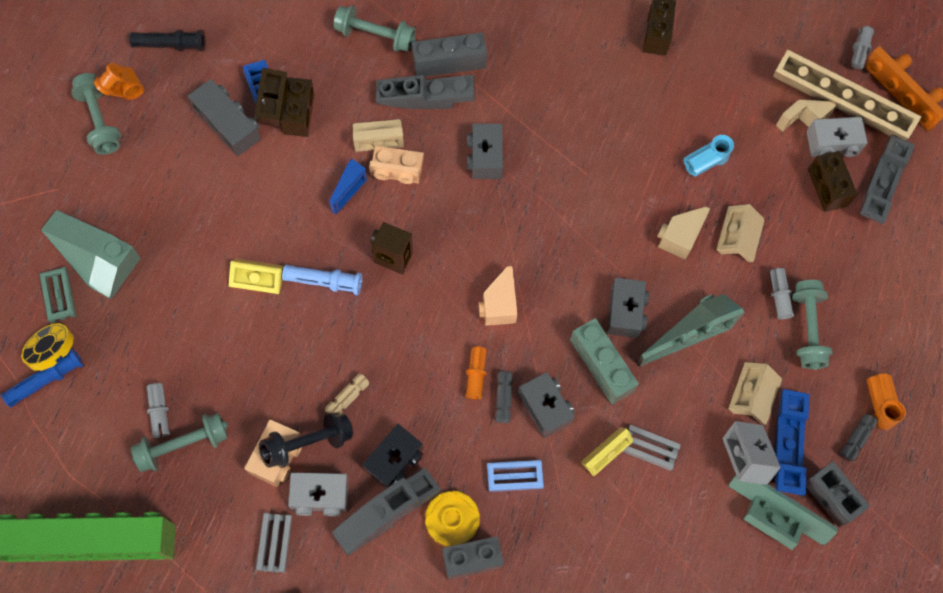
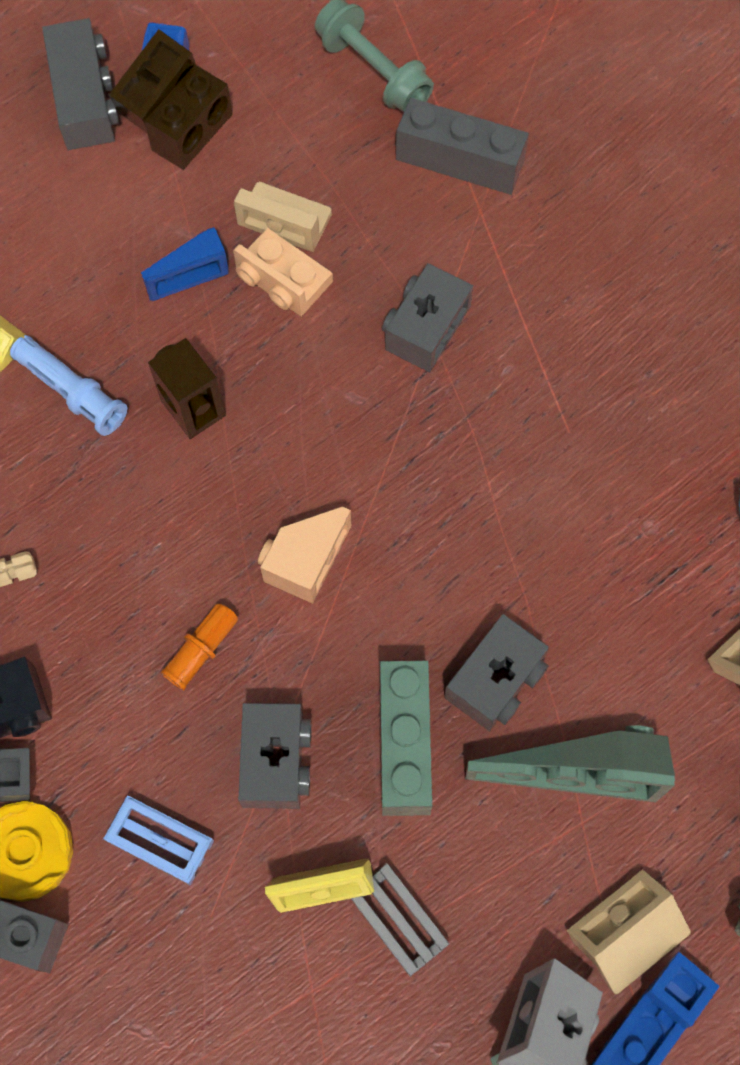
camera: 35 degrees right, 0 degrees up
(419, 93) = (387, 186): dark grey slope -> none
(503, 397) = (218, 707): dark grey axle -> none
(682, 232) = (666, 600): tan slope -> none

